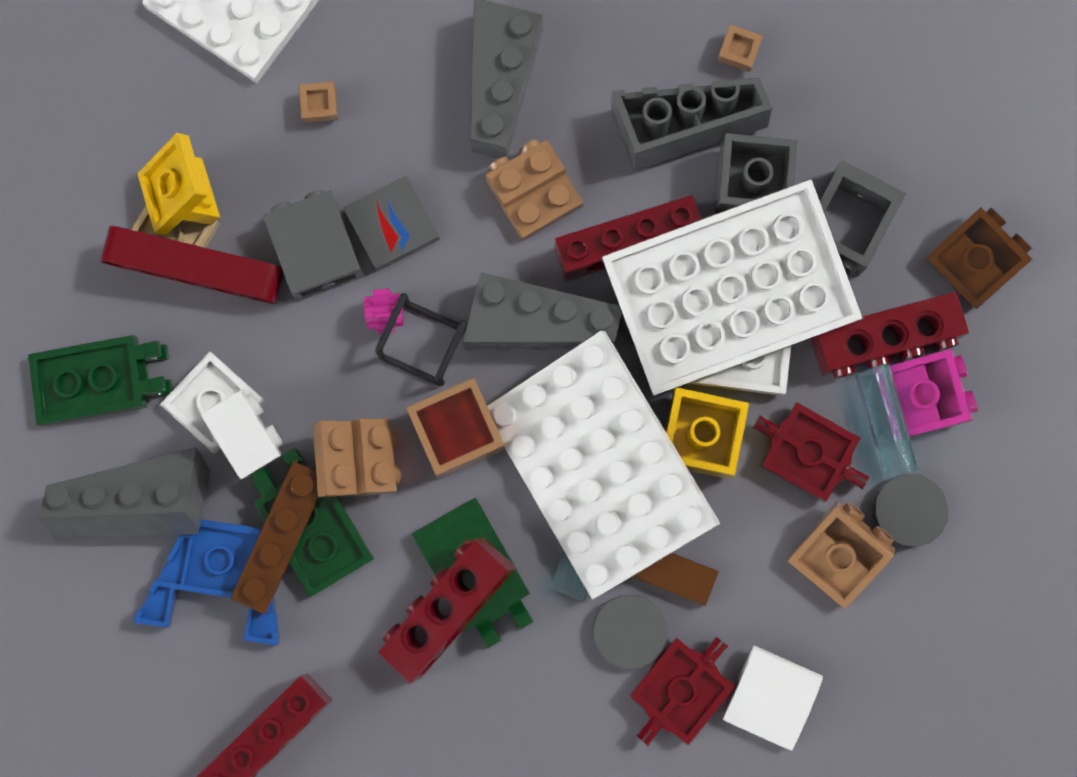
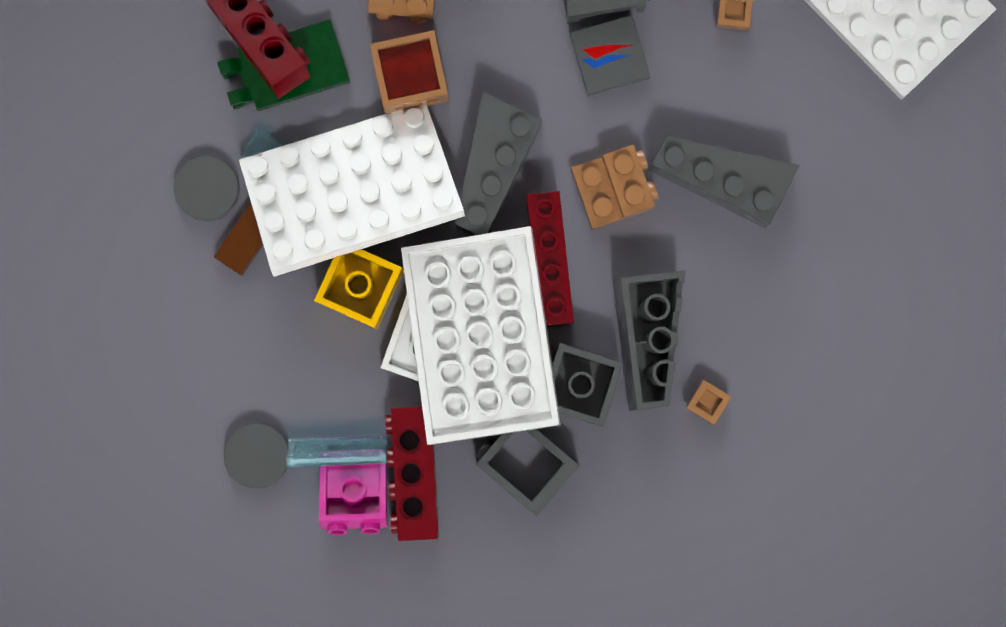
camera: 105 degrees right, 5 degrees up
(379, 309) = (529, 31): dark pink gear -> none
(461, 327) = (461, 67): black piece -> none
(682, 691) = (146, 220): dark red plate -> none
(772, 698) = (123, 297): white slope -> none
(810, 452) = (325, 378): dark red plate -> none
(843, 553) = (231, 385): medium nougat plate -> none
(980, 256) = (467, 573): reddish brown plate -> none

